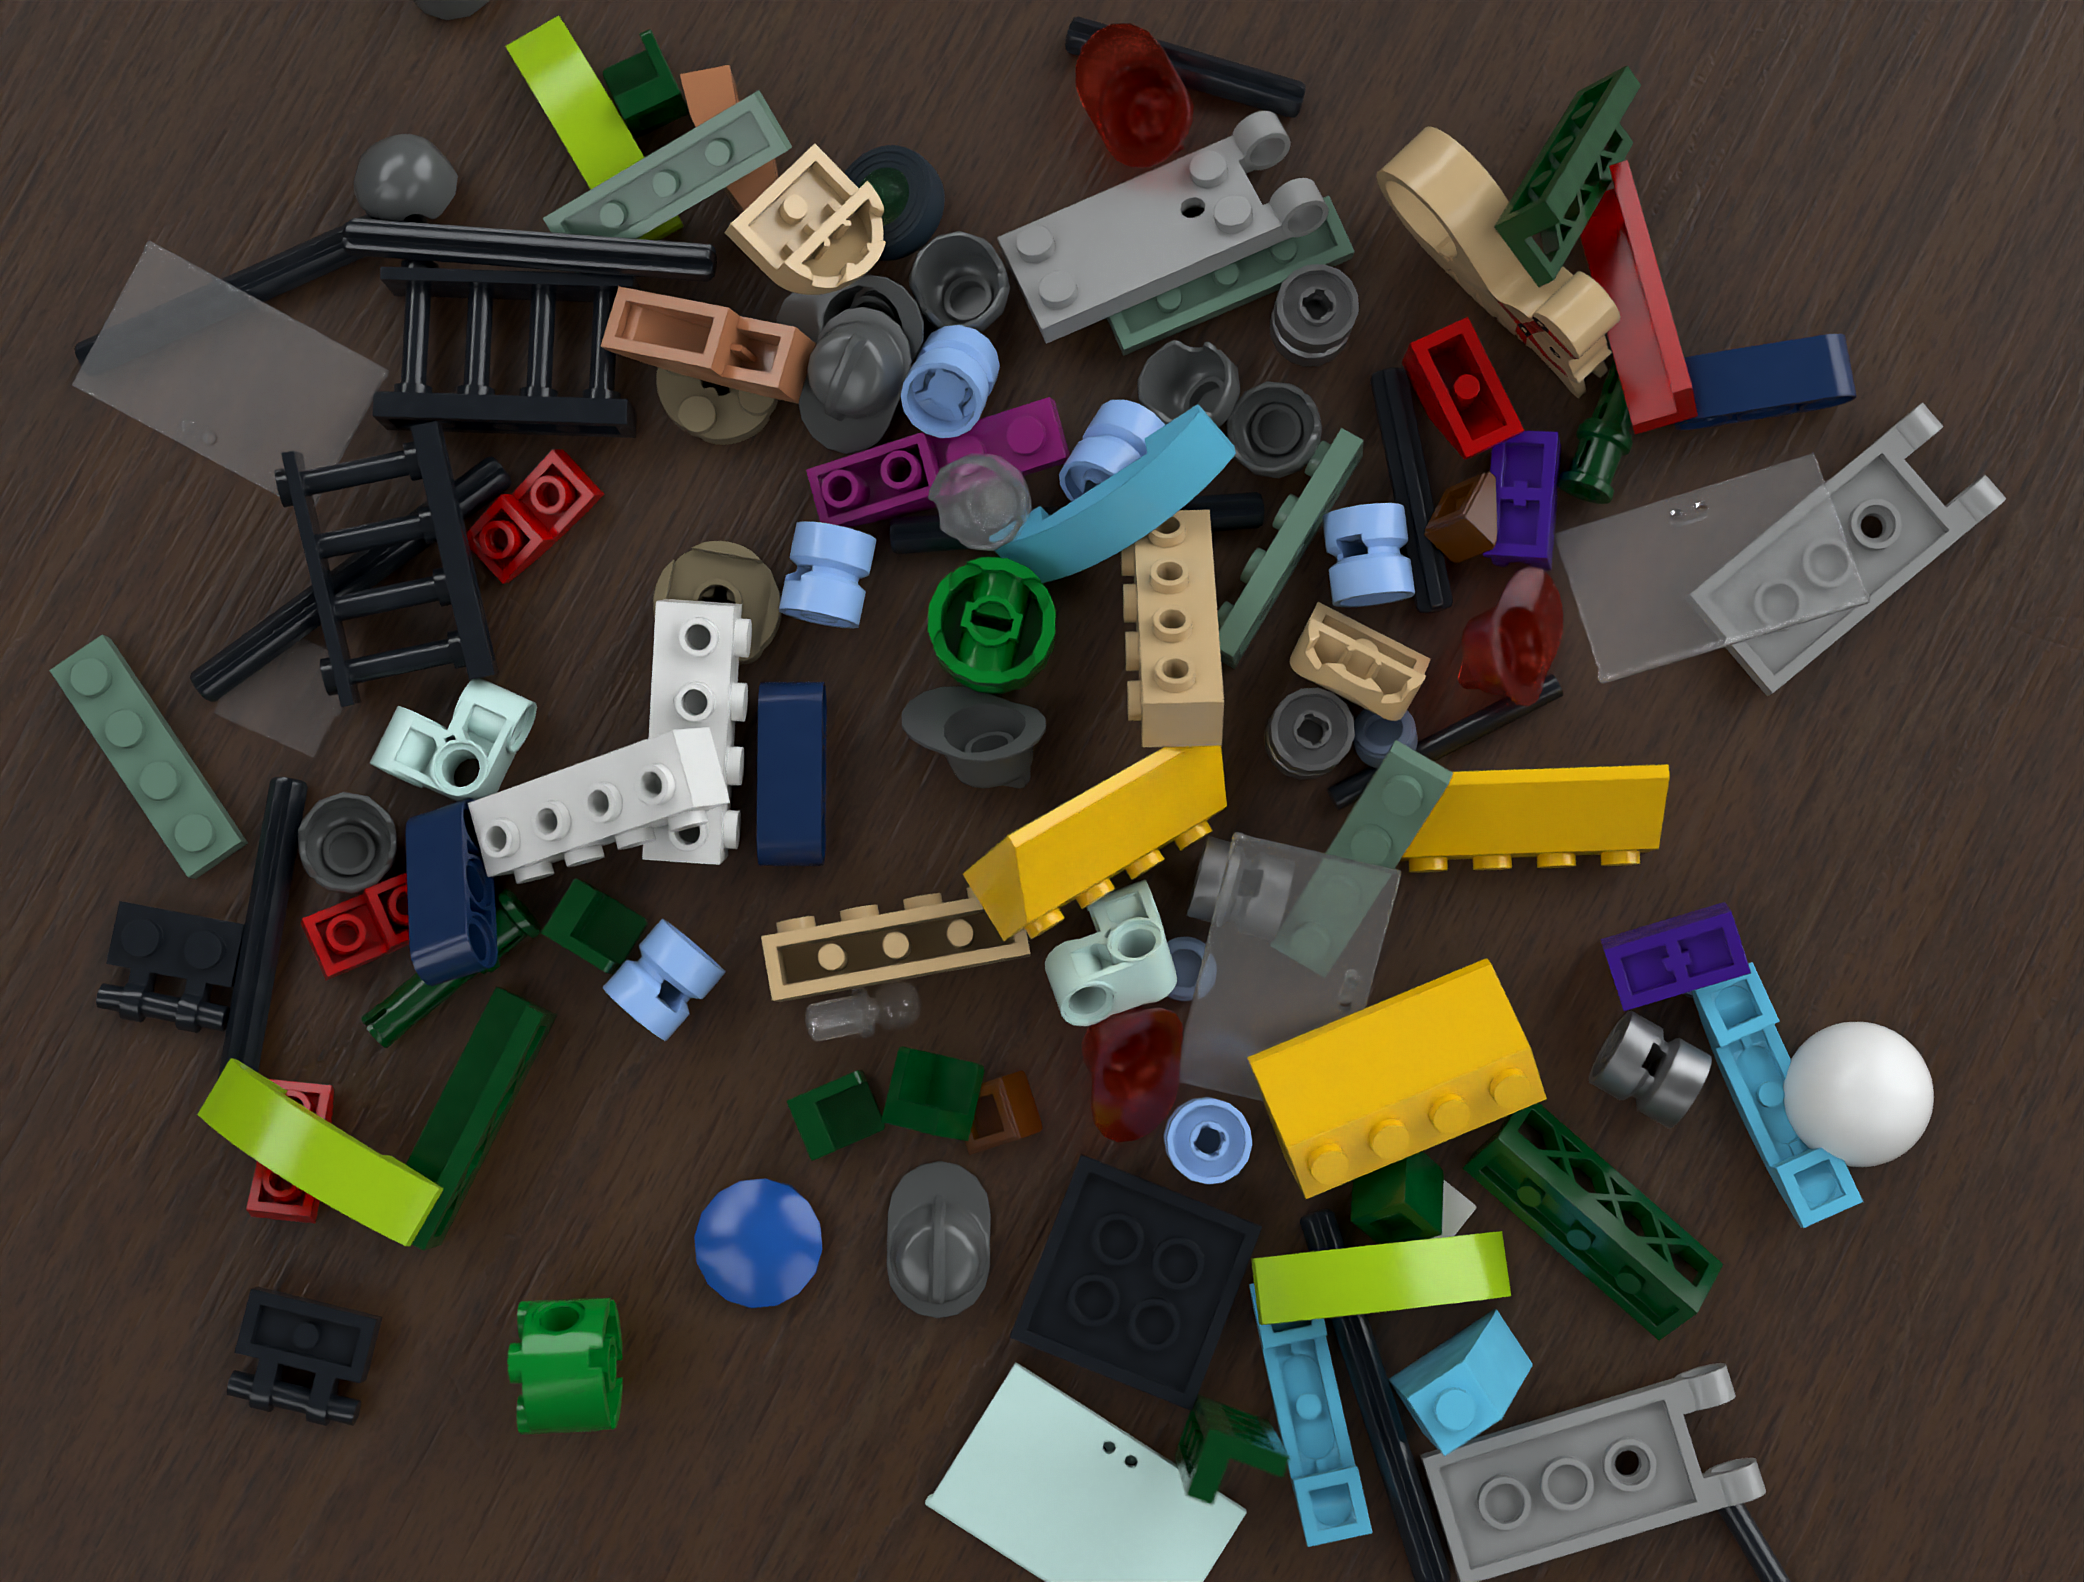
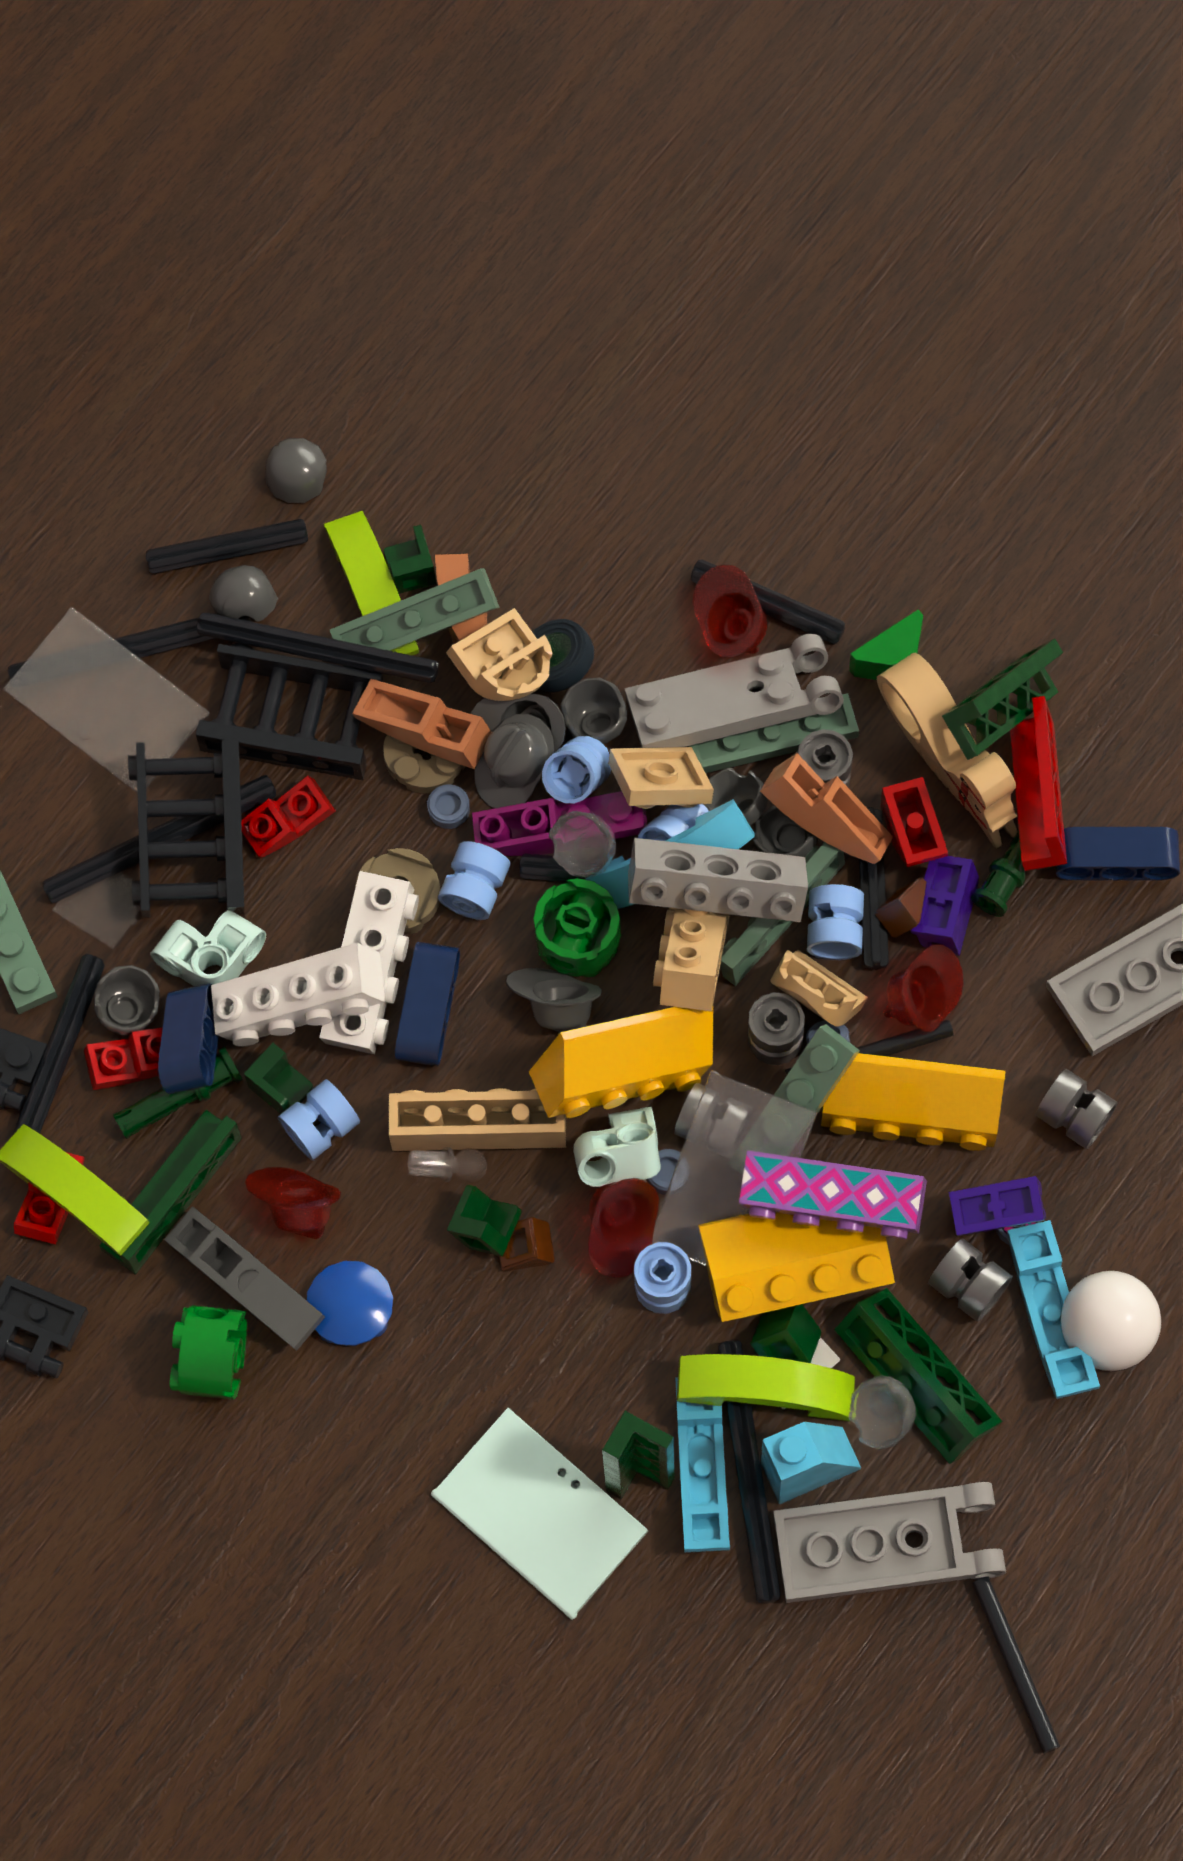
camera: 10 degrees right, 15 degrees down
(366, 103) = (226, 546): none -> black axle
(597, 1241) = (245, 1278): none -> dark grey slope
(649, 1102) = (295, 1199): none -> clear red piece
(769, 460) = (448, 806): none -> sand blue tile
(836, 1114) = (417, 1225): dark green panel -> none
(938, 1239) = (471, 1323): dark grey piece -> none
(1079, 377) = (660, 776): none -> tan plate
(1135, 1282) = (597, 1363): black plate -> none
(1194, 534) = (717, 880): none -> light grey brick
(1332, 390) = (826, 810): none -> nougat slope
(1382, 120) = (887, 648): none -> green slope
(1446, 995) = (833, 1193): none -> brick
(1556, 1290) = (882, 1411): none -> clear hair
(1710, 577) = (1038, 973): clear container -> none
(1750, 766) = (1076, 1108): none -> flat silver wheel

